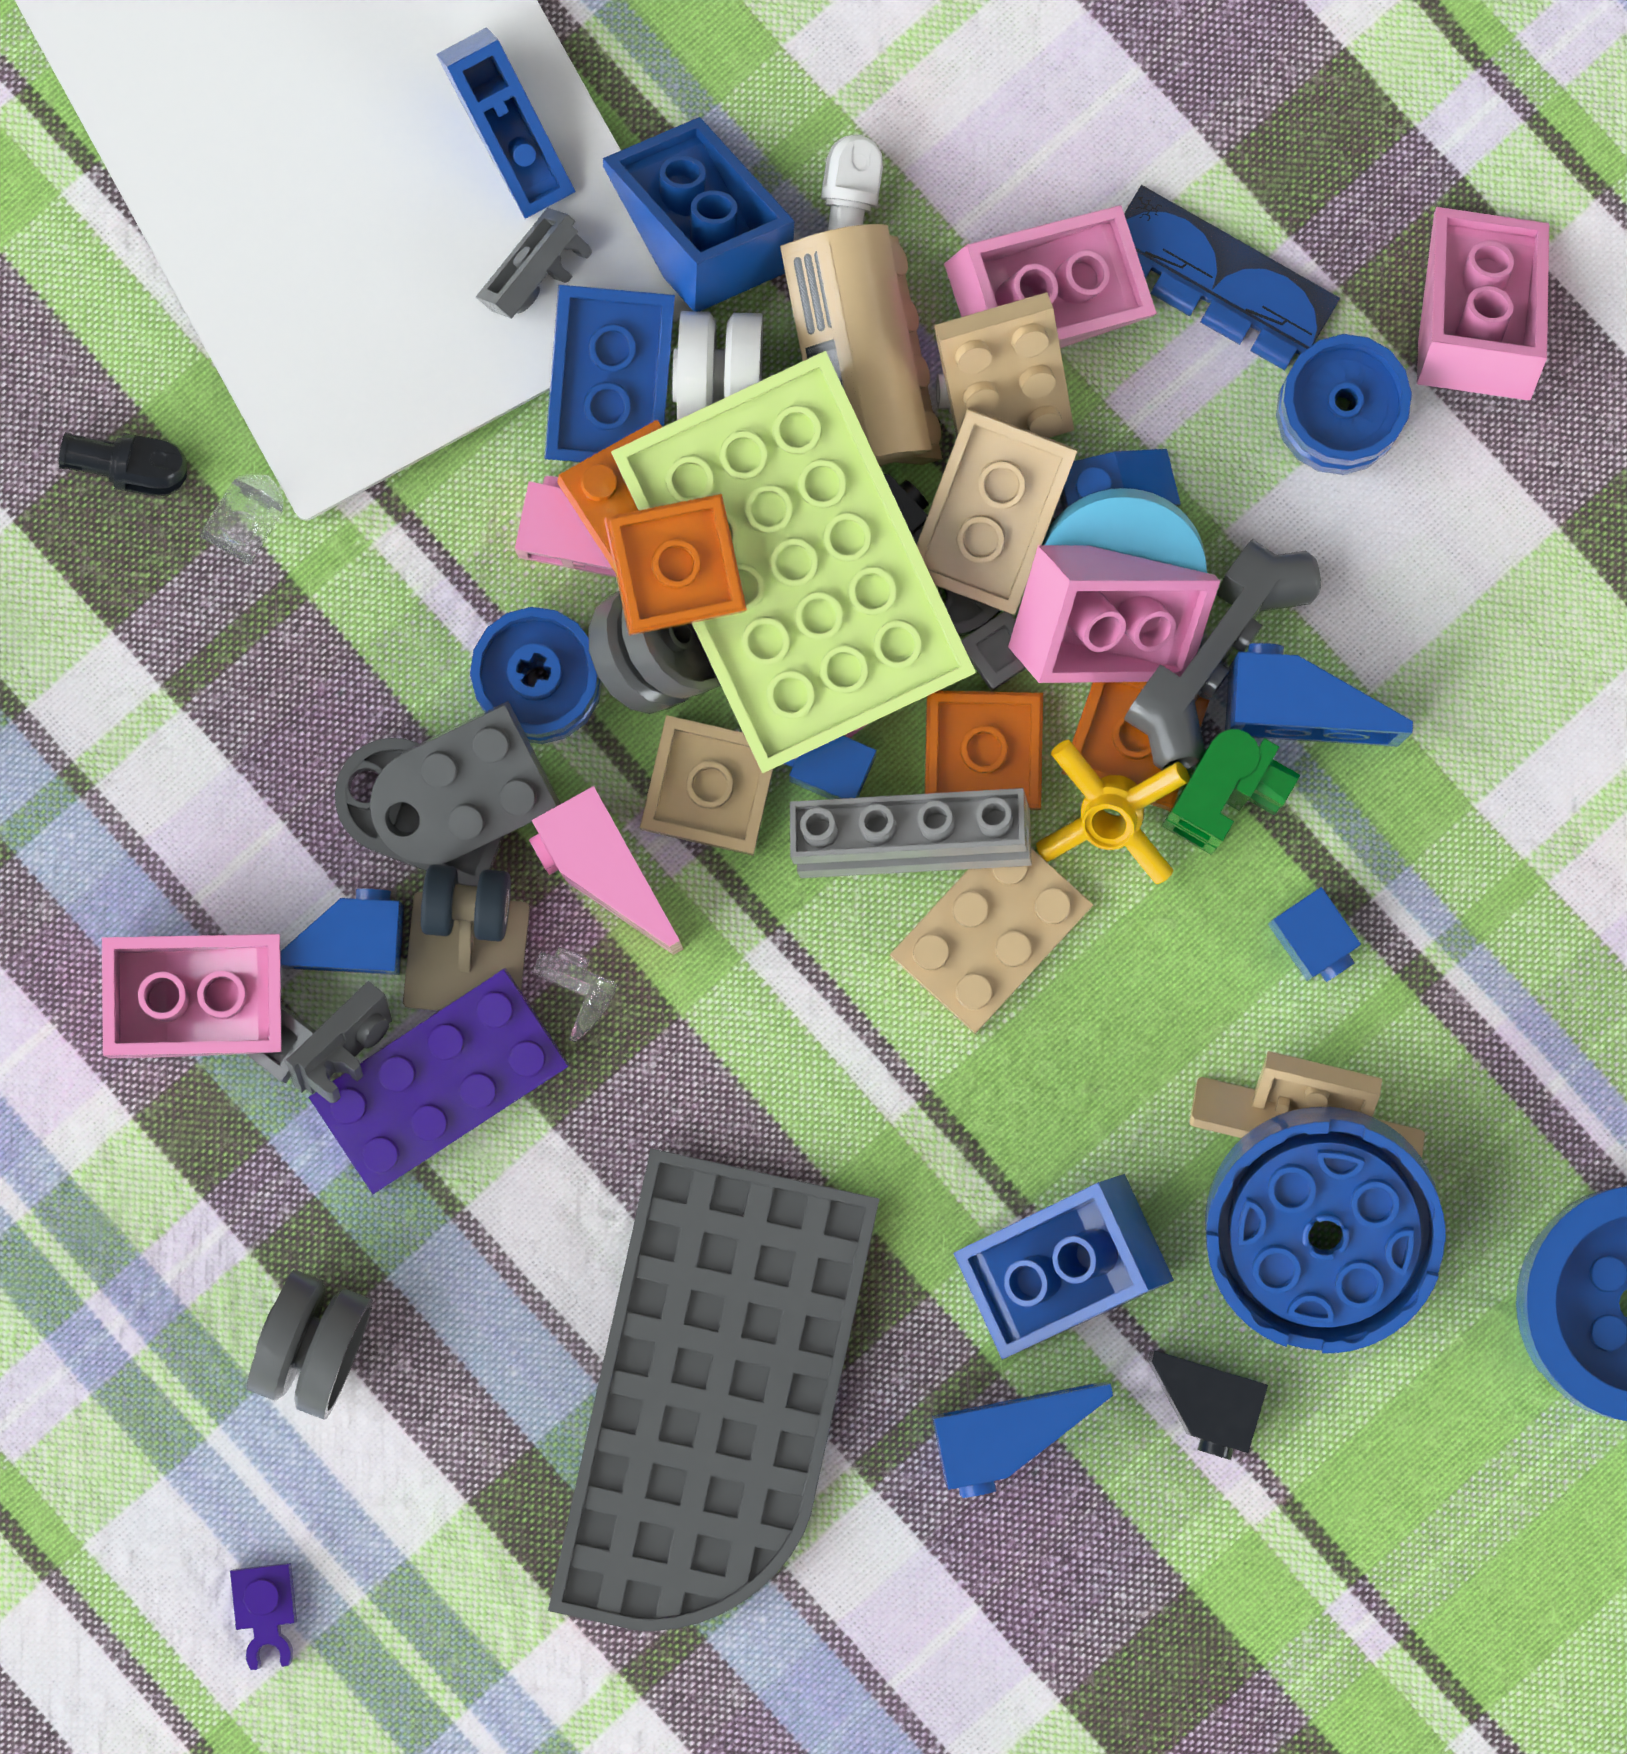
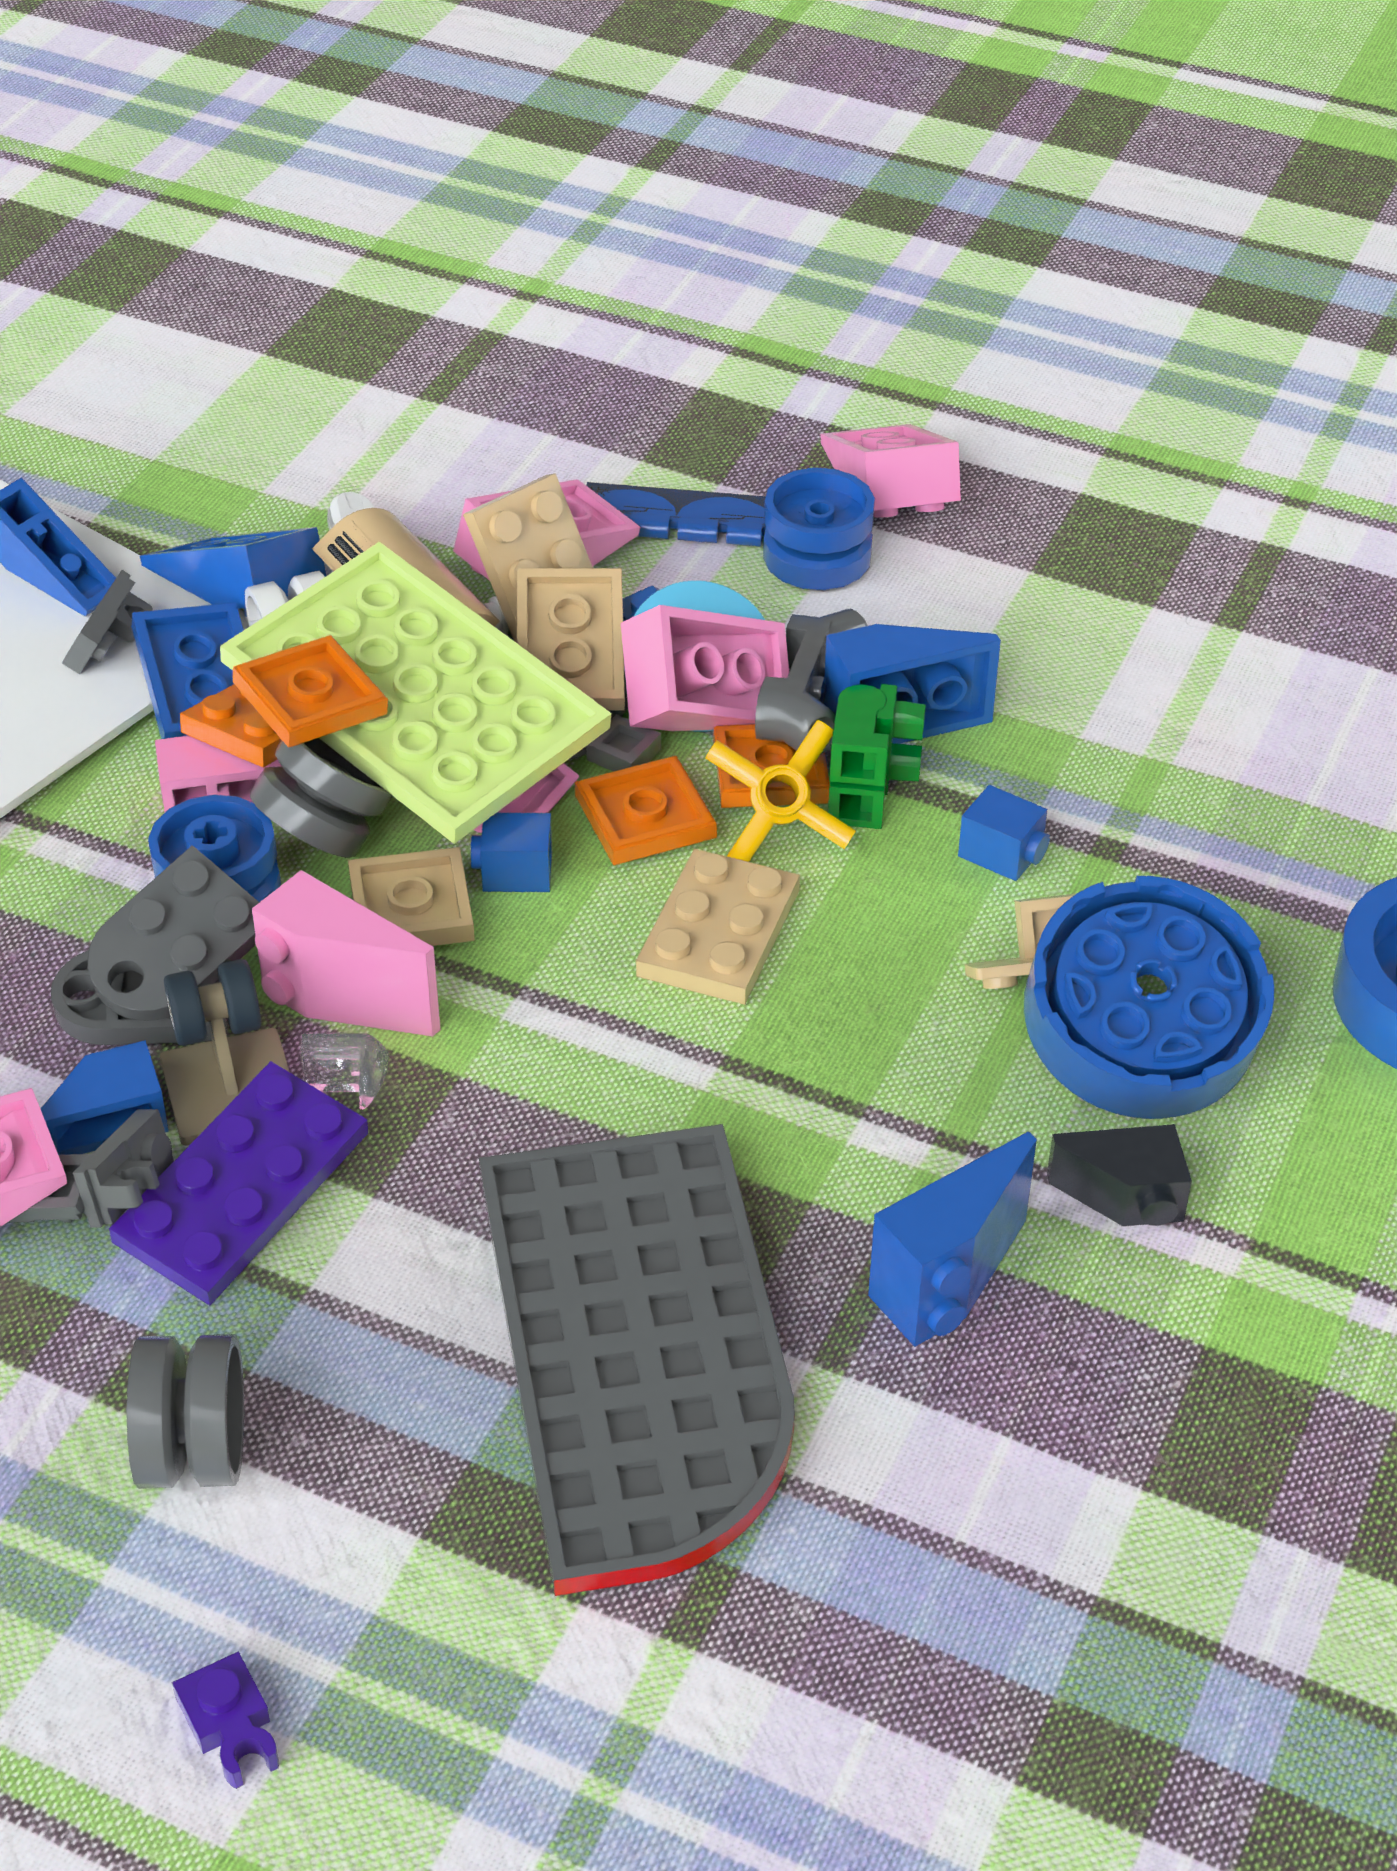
camera: 25 degrees left, 40 degrees down
(910, 833) = (609, 857): light grey brick -> none
(1063, 1266) = (927, 1113): blue slope -> none

